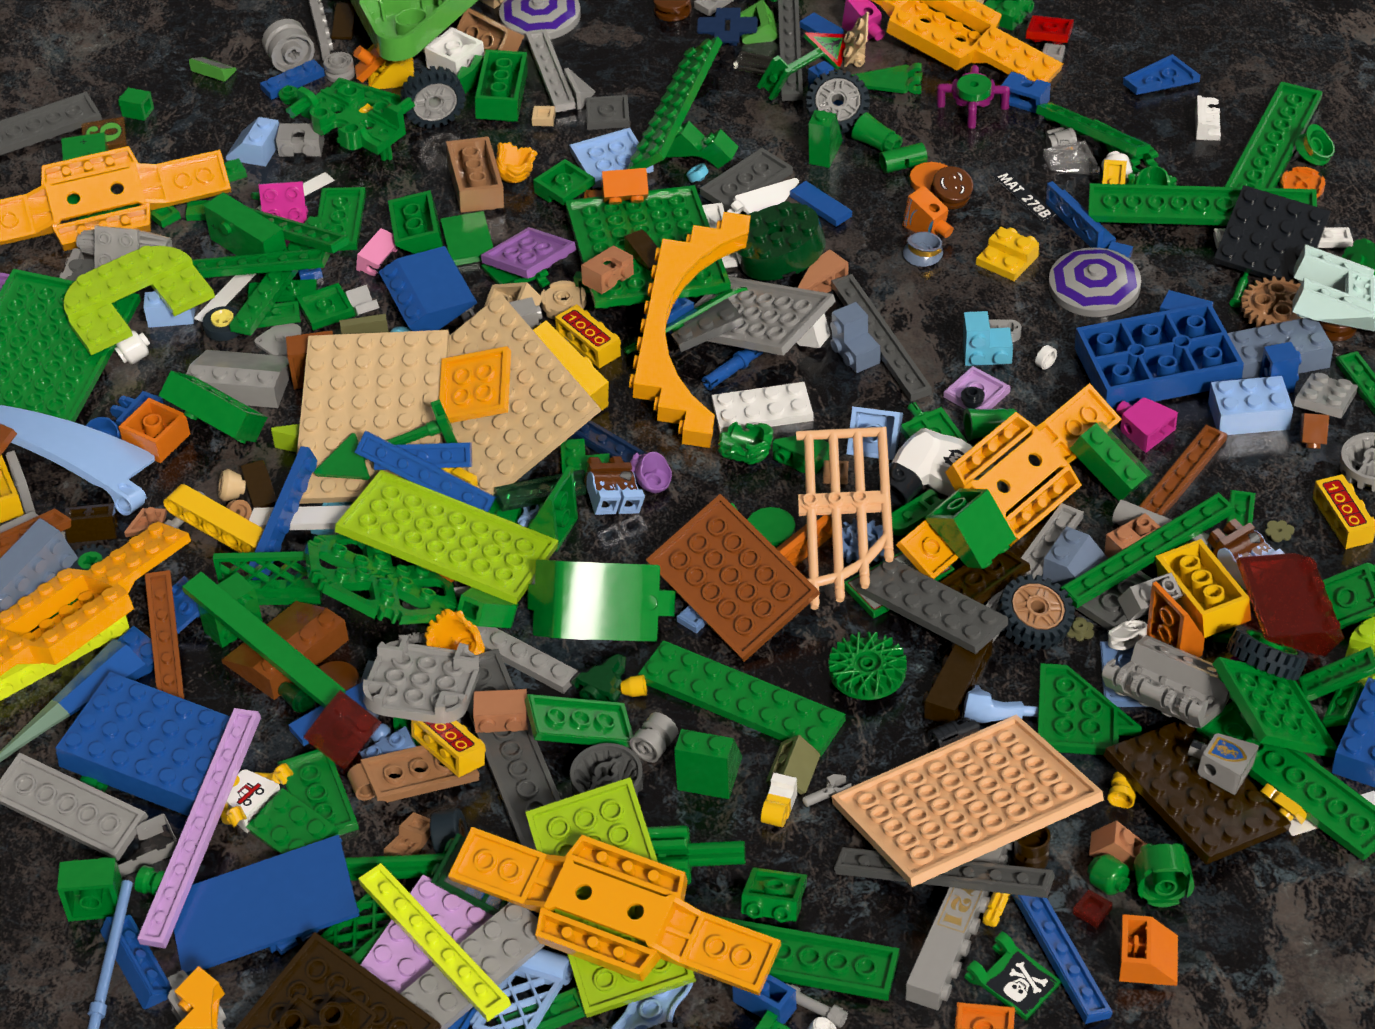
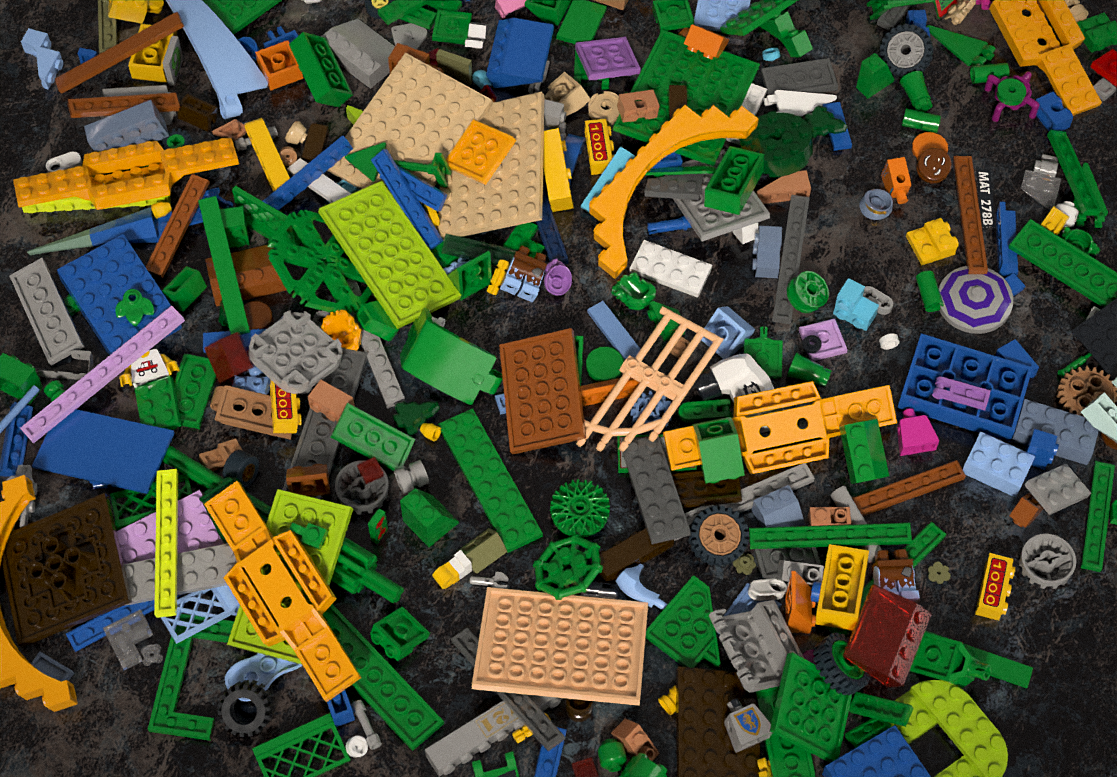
camera: 30 degrees right, 15 degrees up
(130, 632) = (161, 209): none -> yellow hose
(189, 737) = (134, 309): none -> green plate
(226, 690) = (184, 288): none -> green brick
(546, 789) = (308, 480): none -> dark orange slope
(584, 505) = (498, 277): none -> yellow axle
(607, 749) = (370, 470): none -> clear red plate
(607, 830) = (311, 535): none -> green plate
(628, 336) = (616, 164): none -> medium azure tile
(660, 799) = (377, 526): none -> green tile
(753, 492) = (613, 330): none -> medium blue tile
(771, 283) = (734, 180): none -> green brick
(815, 200) = (823, 122): none -> dark green rock
(899, 714) = (563, 558): none -> green plate
(927, 90) = (981, 72): none -> green pin
(927, 353) = (807, 292): none -> green wheel
(1027, 214) = (970, 215): none -> dark orange tile
(1045, 295) = (929, 291): none -> green pin
(1165, 354) = (961, 393): none -> medium lavender plate
(1185, 599) = (816, 588): none -> blue tile

